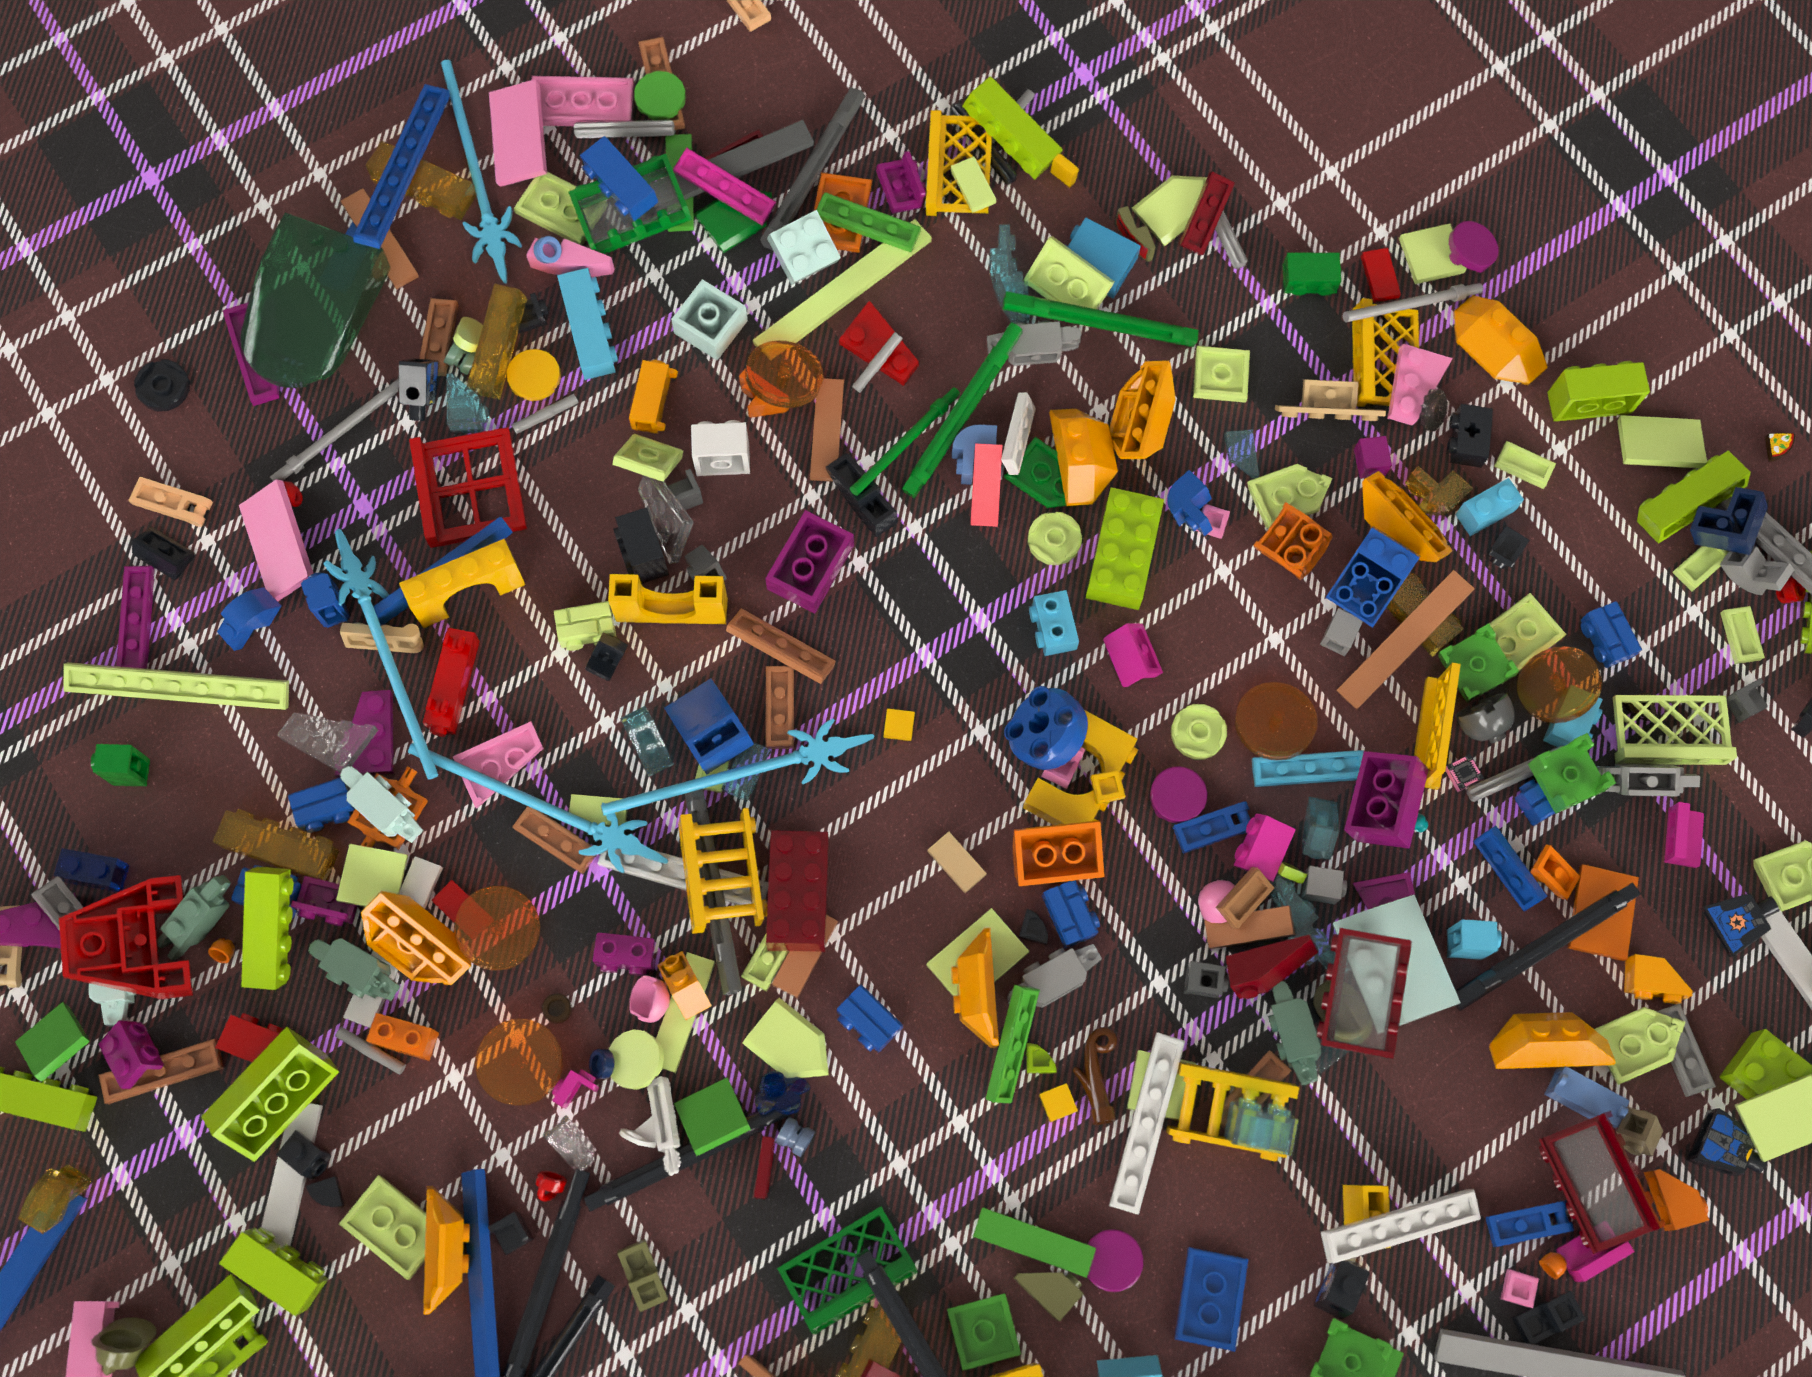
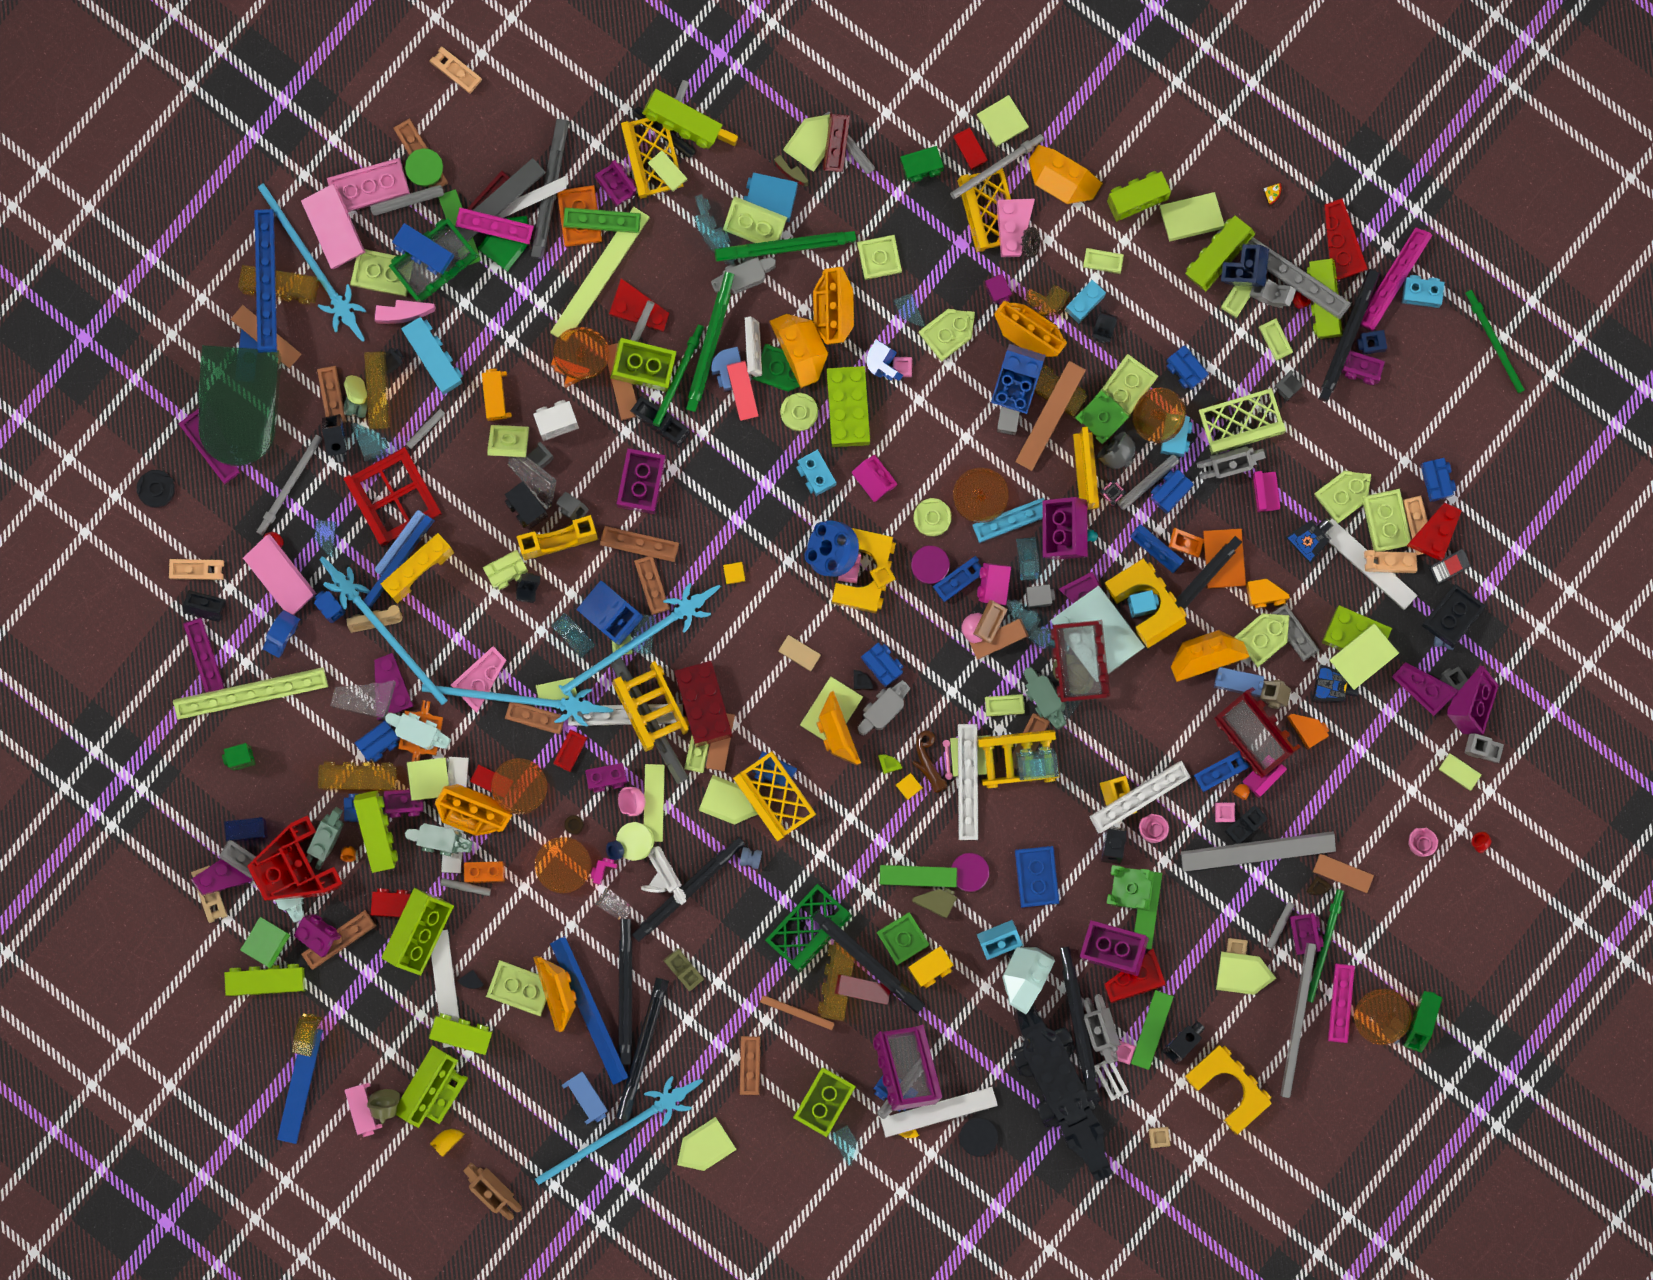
camera: 15 degrees left, 10 degrees up
(304, 1156) = (449, 962): black bracket -> none
(361, 510) = (326, 535): none -> clear light blue tile
(450, 682) = (430, 635): red brick -> none
(455, 542) = (399, 542): none -> light blue axle
(511, 1232) = (594, 969): black panel -> none
(533, 374) = (407, 403): yellow tile -> none
(538, 249) = (382, 312): medium blue piece -> none
(550, 1182) = (608, 931): red tile -> none
(588, 900) = (570, 750): none -> red tile
(683, 985) = (651, 786): light orange slope -> none
(709, 319) = (516, 328): light aqua brick -> none
(712, 1116) = (695, 861): bright green tile -> none
(764, 1168) = (738, 882): dark red tile -> none
(780, 1093) = (733, 834): clear blue plate -> none
(790, 169) = (535, 196): none -> white sticker
(803, 247) = (564, 255): light aqua brick -> none
(834, 1064) = (761, 806): none -> yellow fence
(862, 411) = (643, 364): none -> lime brick
(1012, 1044) = (869, 759): bright green tile -> none
(1058, 853) = (863, 629): orange slope -> none
(1130, 1057) = (946, 743): none -> bright pink hinge
(1215, 973) = (972, 679): dark grey brick -> none
(1230, 1026) = (1004, 705): none -> yellowish green tile
(1264, 967) = (1015, 662): dark red slope -> none
(1291, 872) = (1016, 594): lime tile -> none
(1294, 541) = (960, 367): orange slope -> none
(1330, 397) = (959, 255): tan bracket -> none
(1408, 1280) = (1153, 828): none -> bright pink hair
(1470, 435) = (1060, 241): black brick -> none
(1472, 246) = (1028, 109): magenta tile -> none
(1482, 901) = (1142, 578): none -> yellow arch
(1569, 774) = (1178, 476): bright green panel -> none

